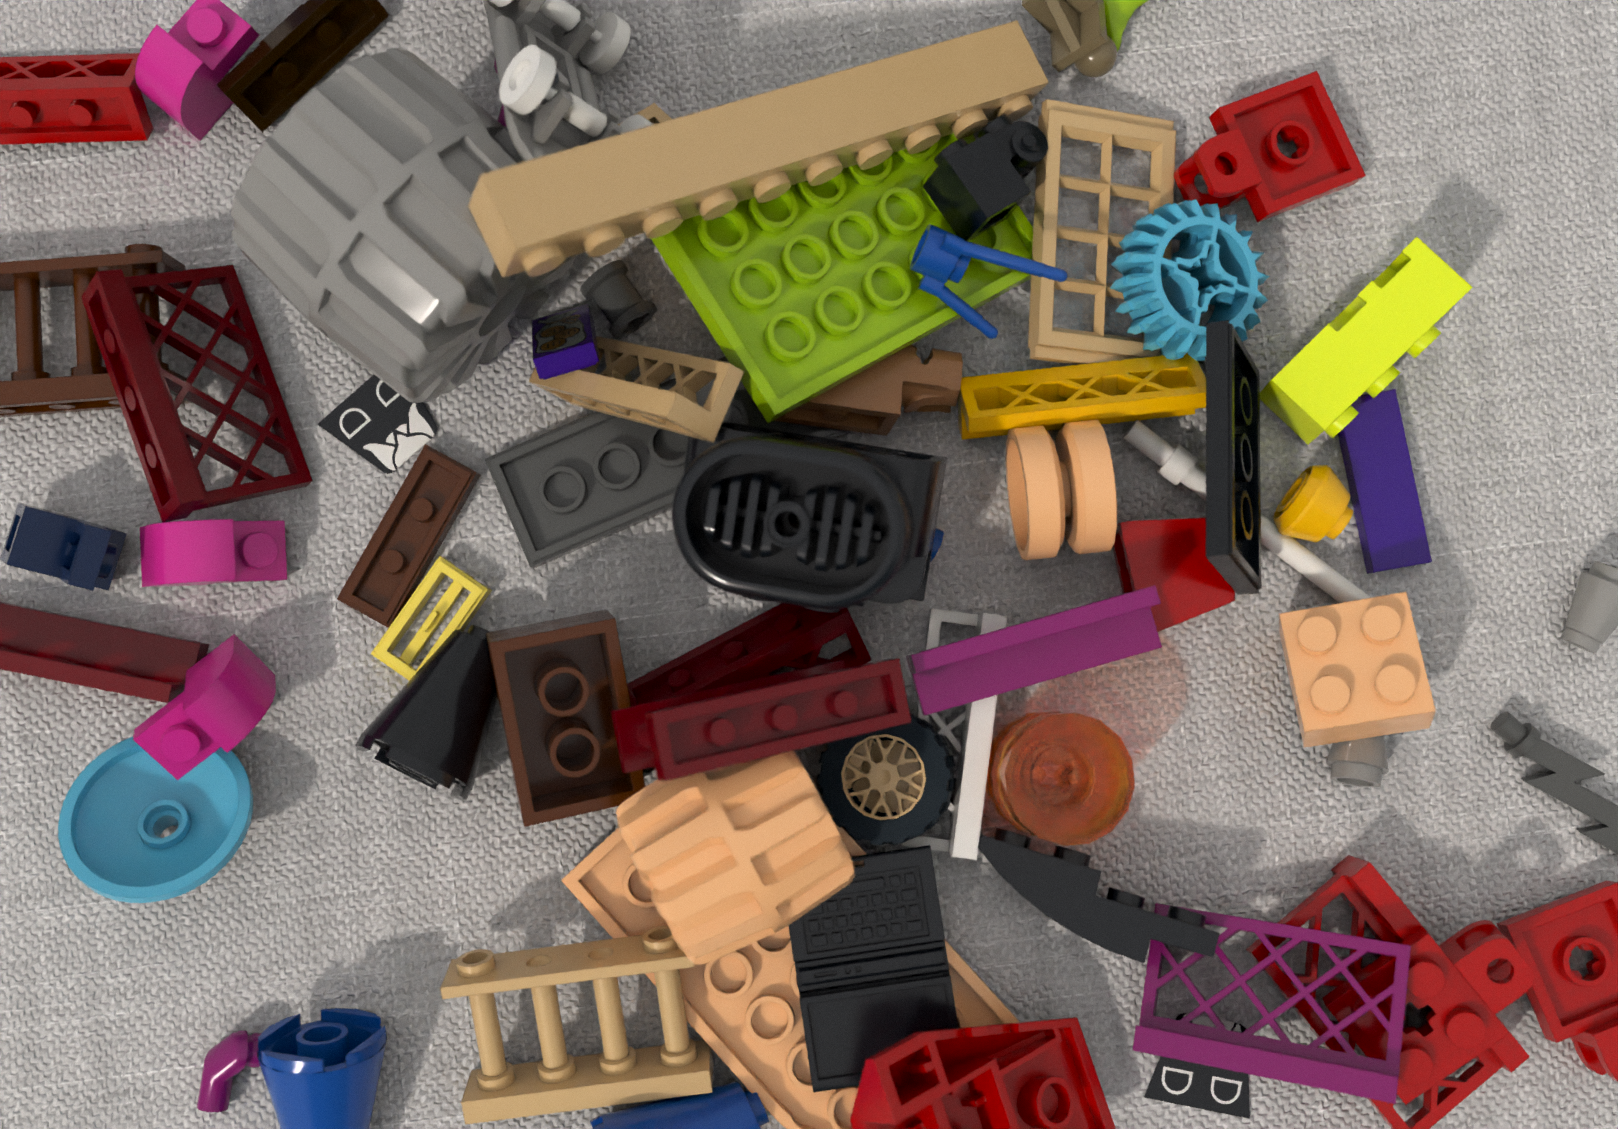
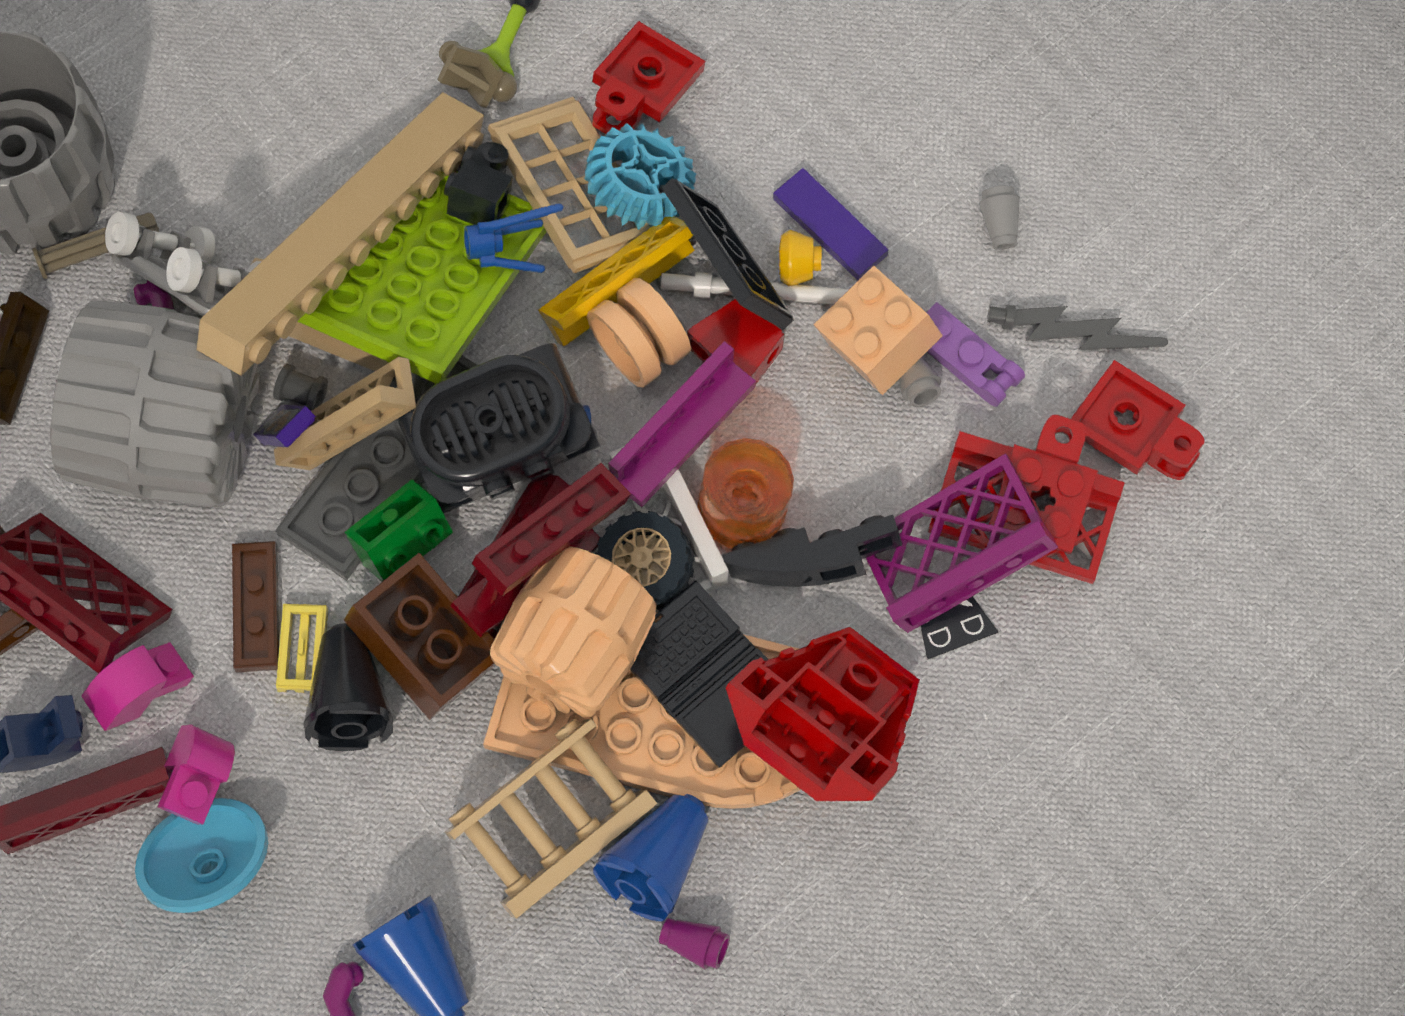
camera: 30 degrees left, 15 degrees down
(381, 425) = (194, 549): black sticker -> none
(618, 560) = (398, 530): none -> green brick
(875, 396) = (503, 333): medium nougat plate -> none
(1364, 342) = (764, 152): neon yellow wedge -> none
(1443, 761) = (971, 358): none -> medium lavender plate

